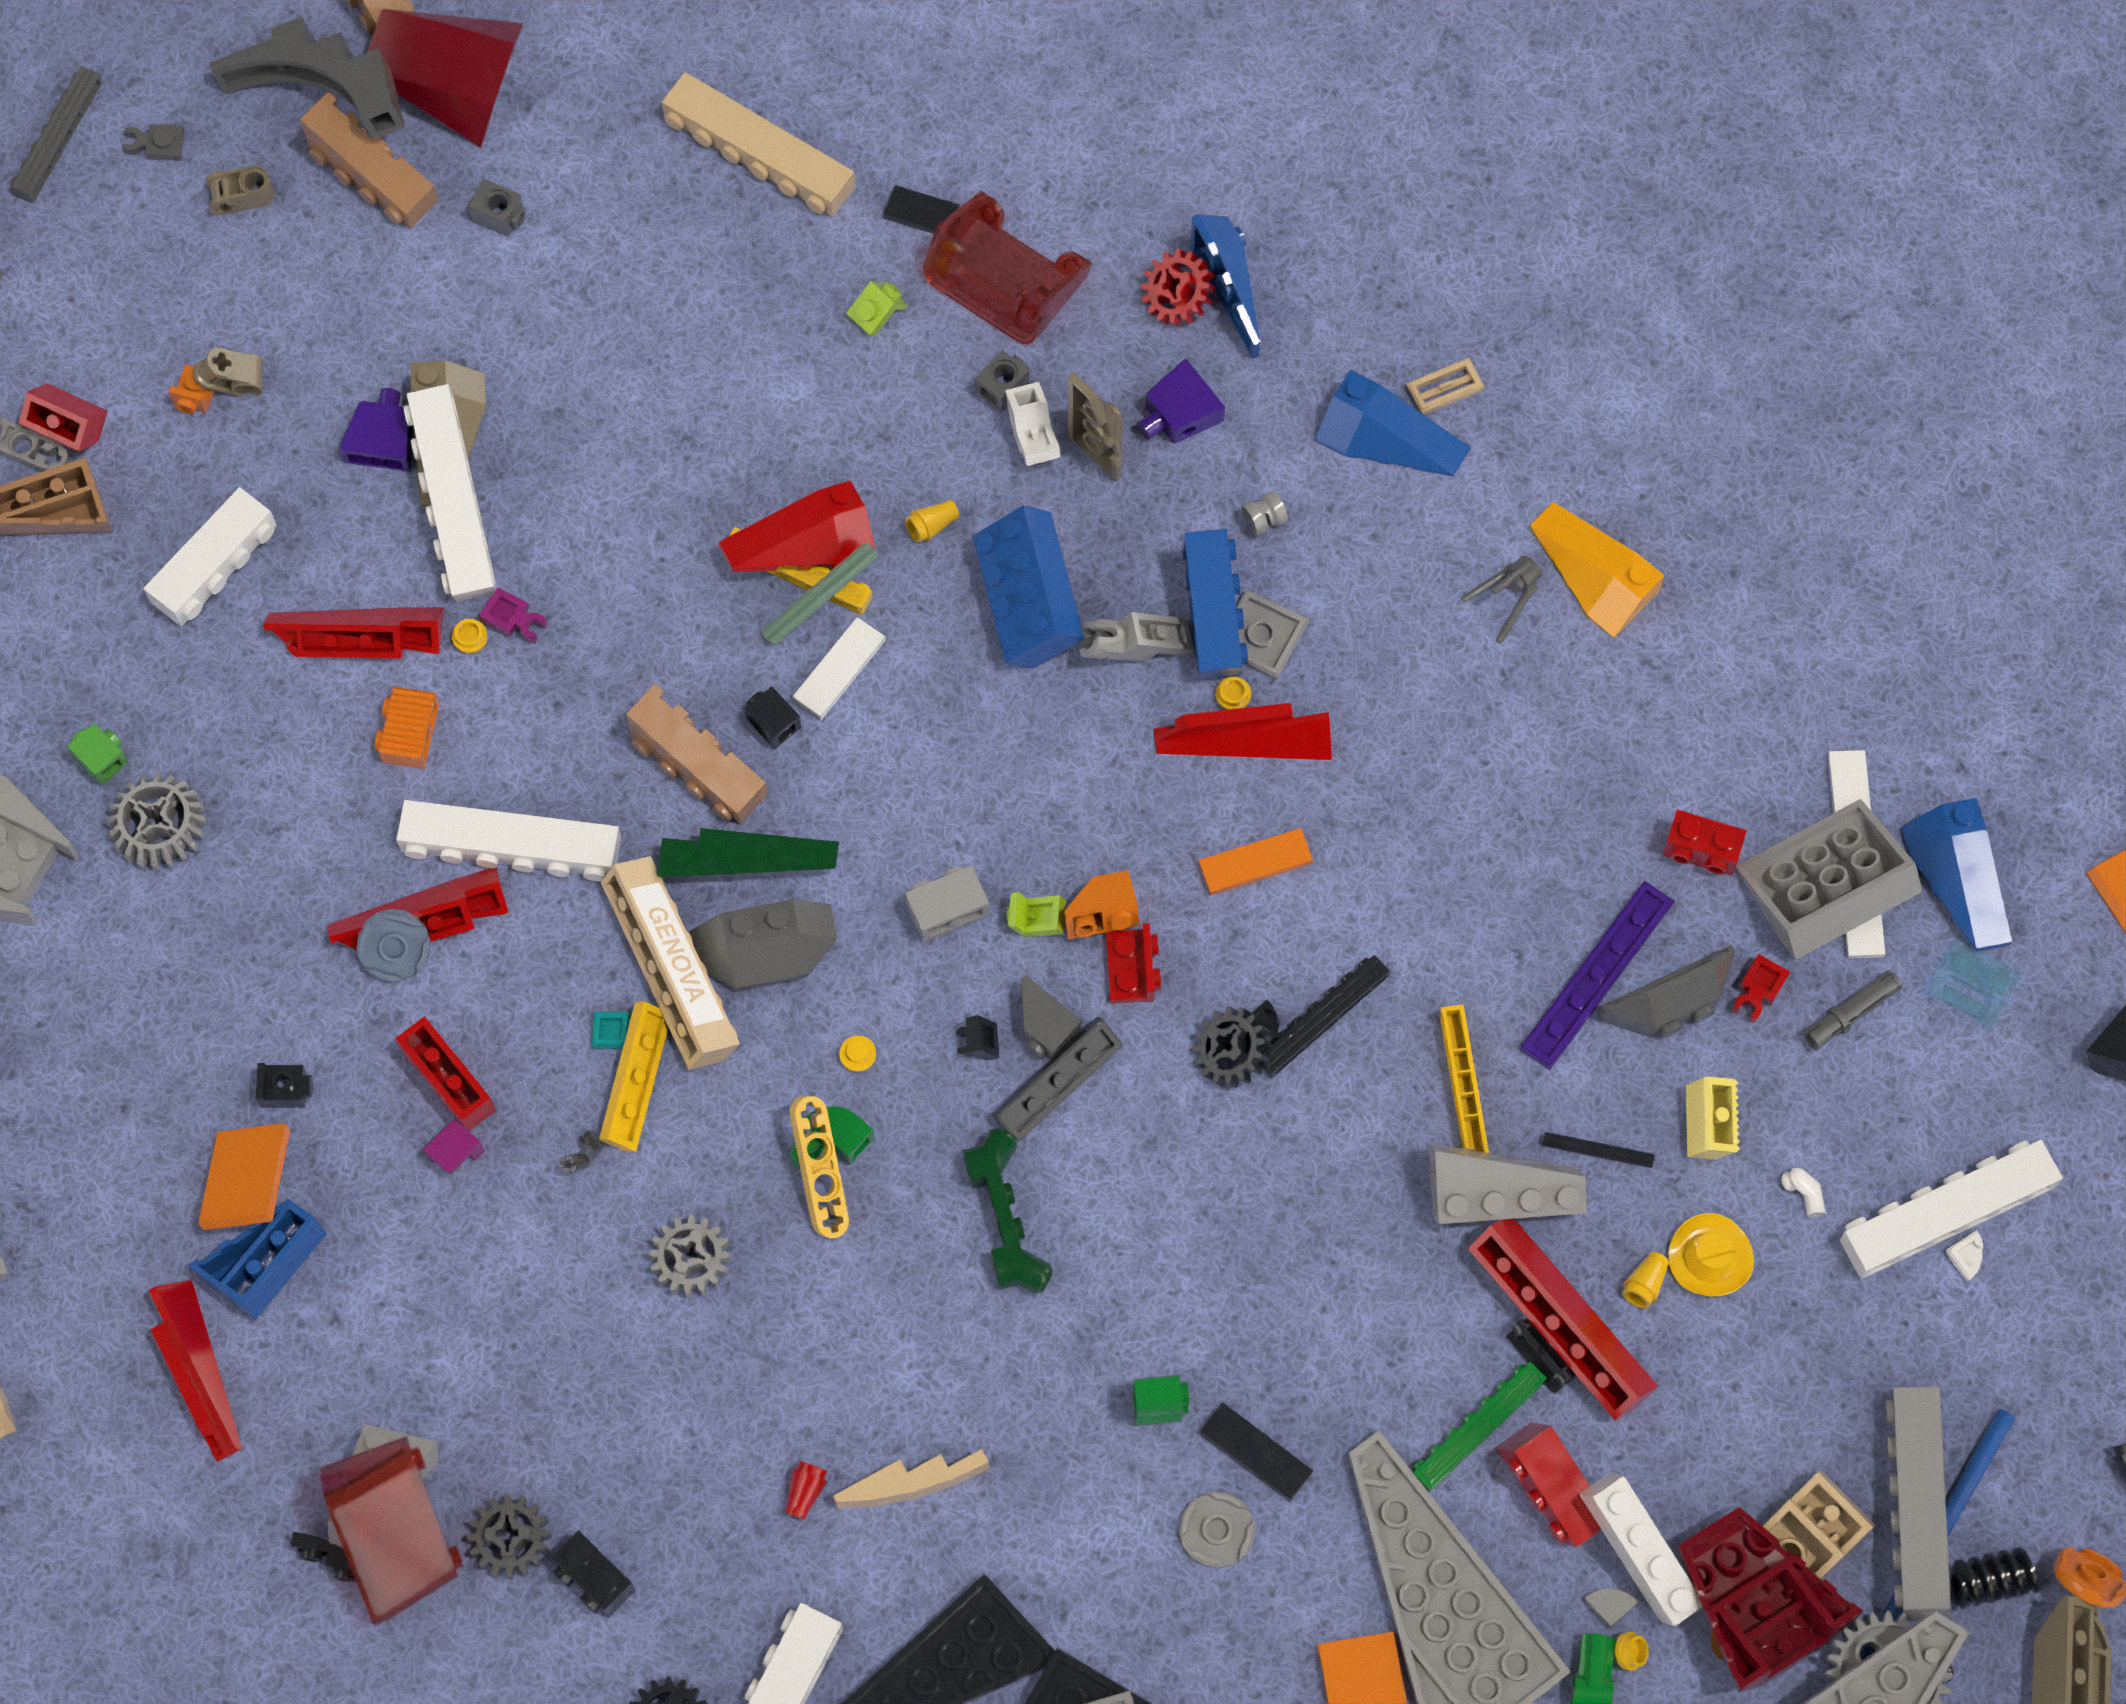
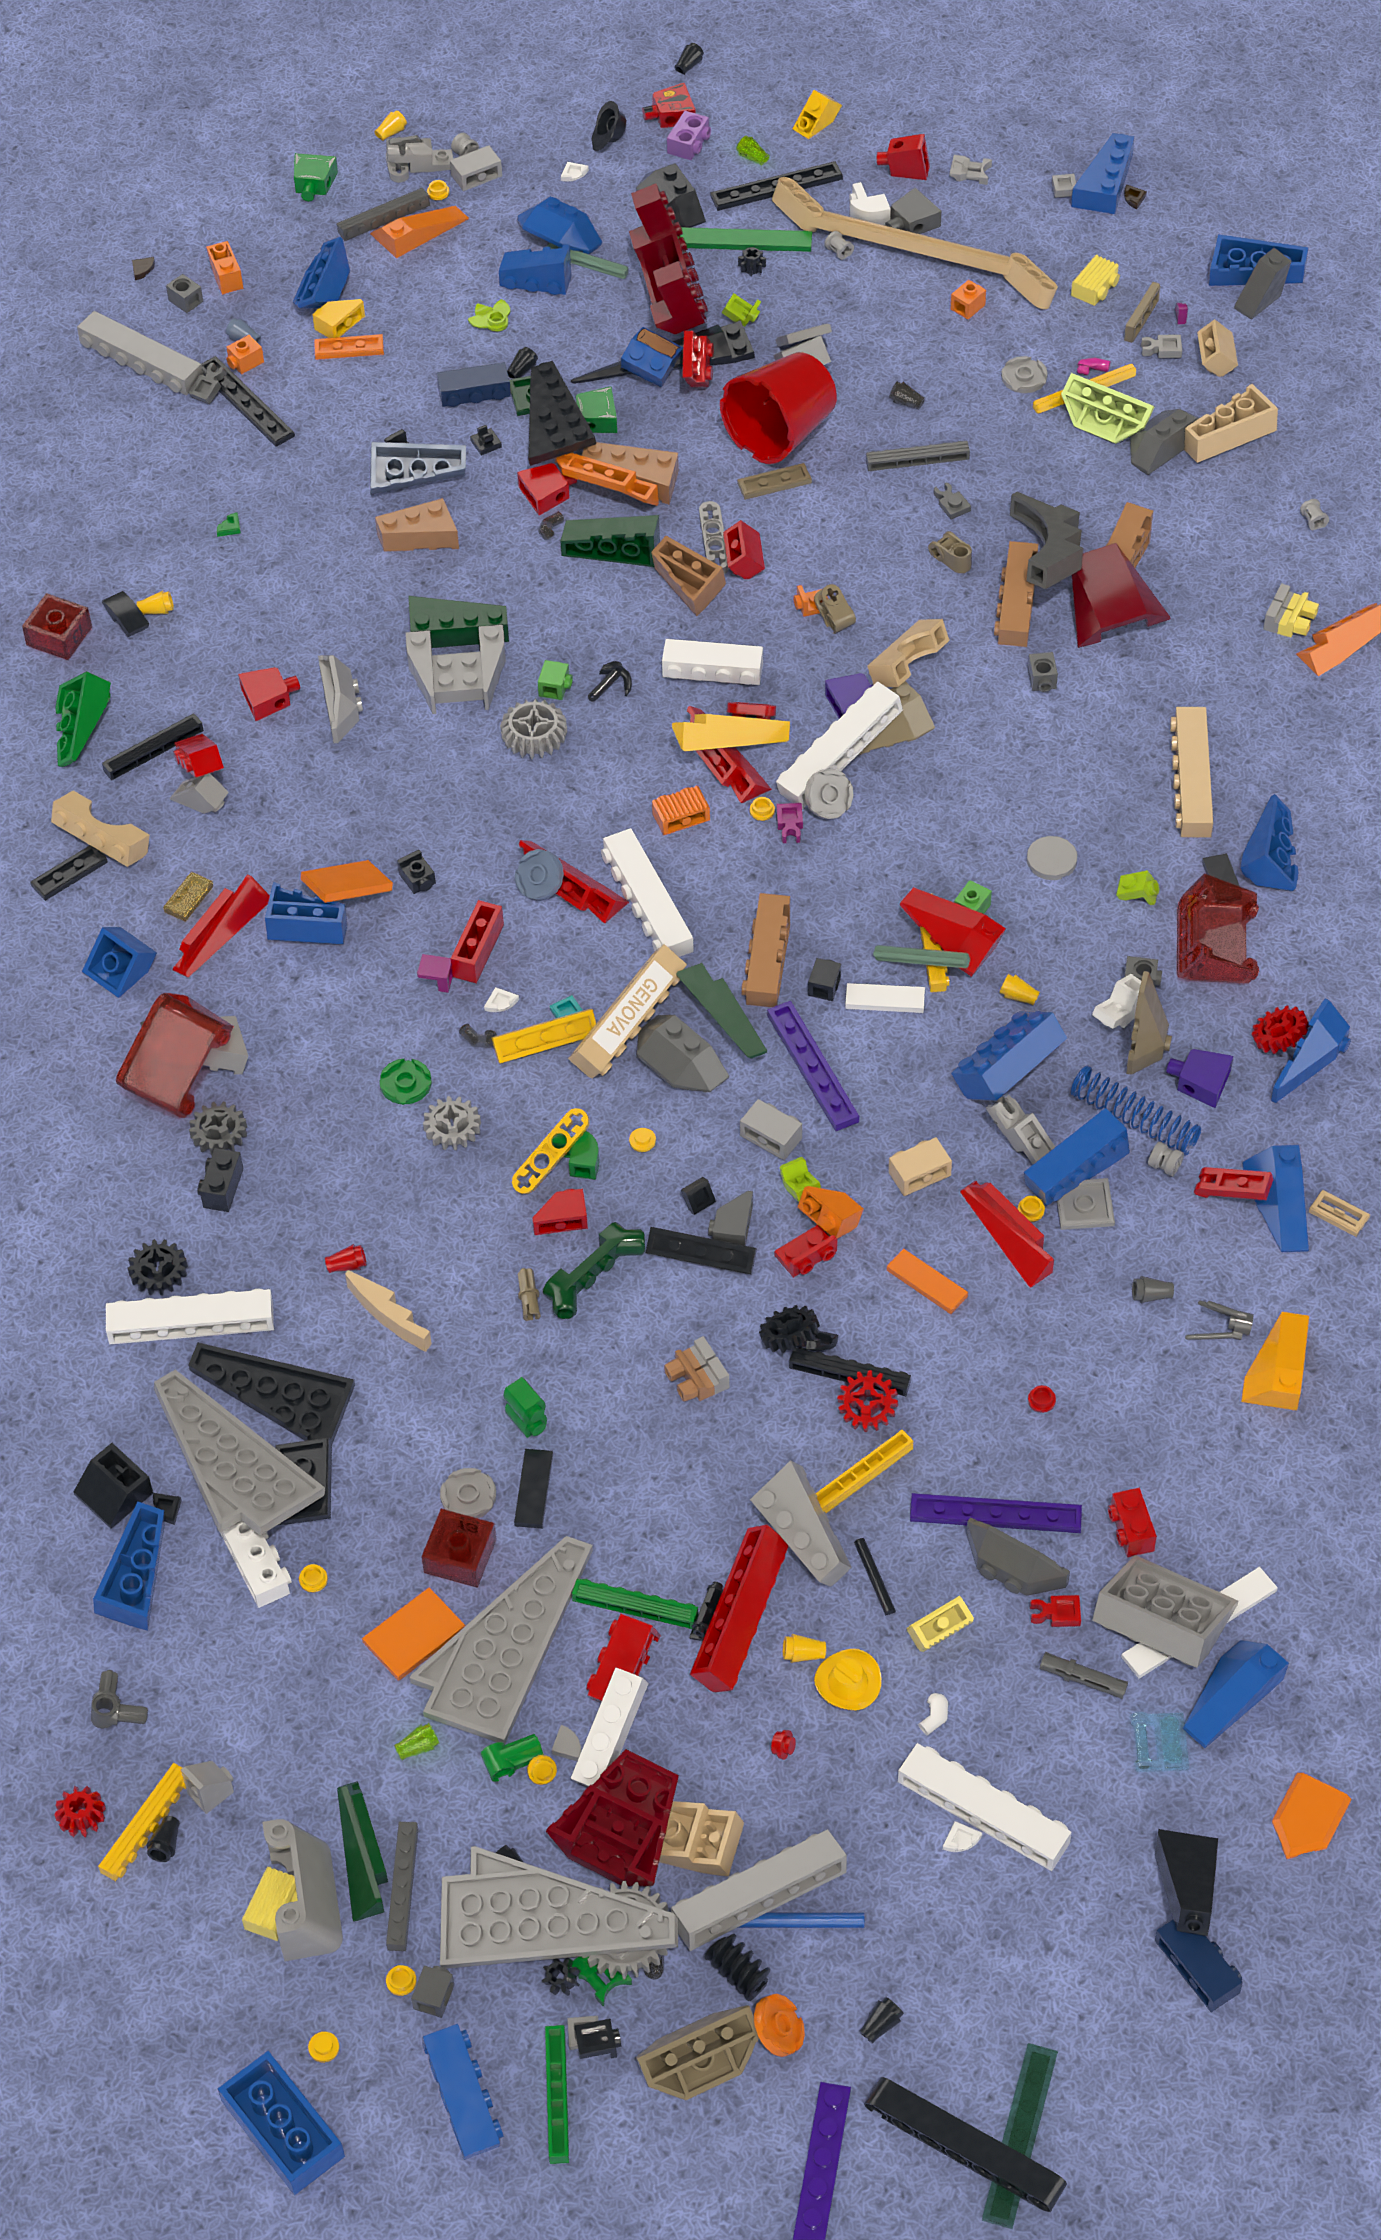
camera: 60 degrees right, 15 degrees down
(118, 1380) = (188, 896): none -> clear yellow plate
(141, 673) = (614, 670): none -> black piece
(163, 1521) = (118, 960): none -> blue slope
(304, 565) = (762, 711): none -> red plate
(337, 605) = (723, 731): none -> yellow wedge
(355, 305) = (919, 640): none -> tan arch
(510, 549) = (828, 793): none -> light grey tile
(542, 1097) = (500, 1000): none -> white tile
(591, 1286) = (400, 1087): none -> green tile
(767, 368) = (1052, 857): none -> light grey tile
(774, 488) = (974, 897): none -> bright green brick
(882, 804) = (813, 1066): none -> dark purple plate
(905, 1200) = (562, 1213): none -> red slope
(930, 148) = (1269, 849): none -> blue wedge
(990, 1306) = (528, 1294): none -> dark tan axle
(1101, 520) = (1084, 1081): none -> blue piece
(1106, 774) = (920, 1166): none -> tan brick
(1236, 1185) = (700, 1368): none -> medium nougat hips
(1295, 1581) = (459, 1548): none -> clear red brick
(1347, 466) = (1233, 1183): none -> red plate
(1391, 1030) = (857, 1399): none -> red gear
(1421, 638) = (1151, 1289): none -> dark grey cone
(1485, 838) = (1042, 1399): none -> red plate
(1752, 1371) = (783, 1744): none -> red plate

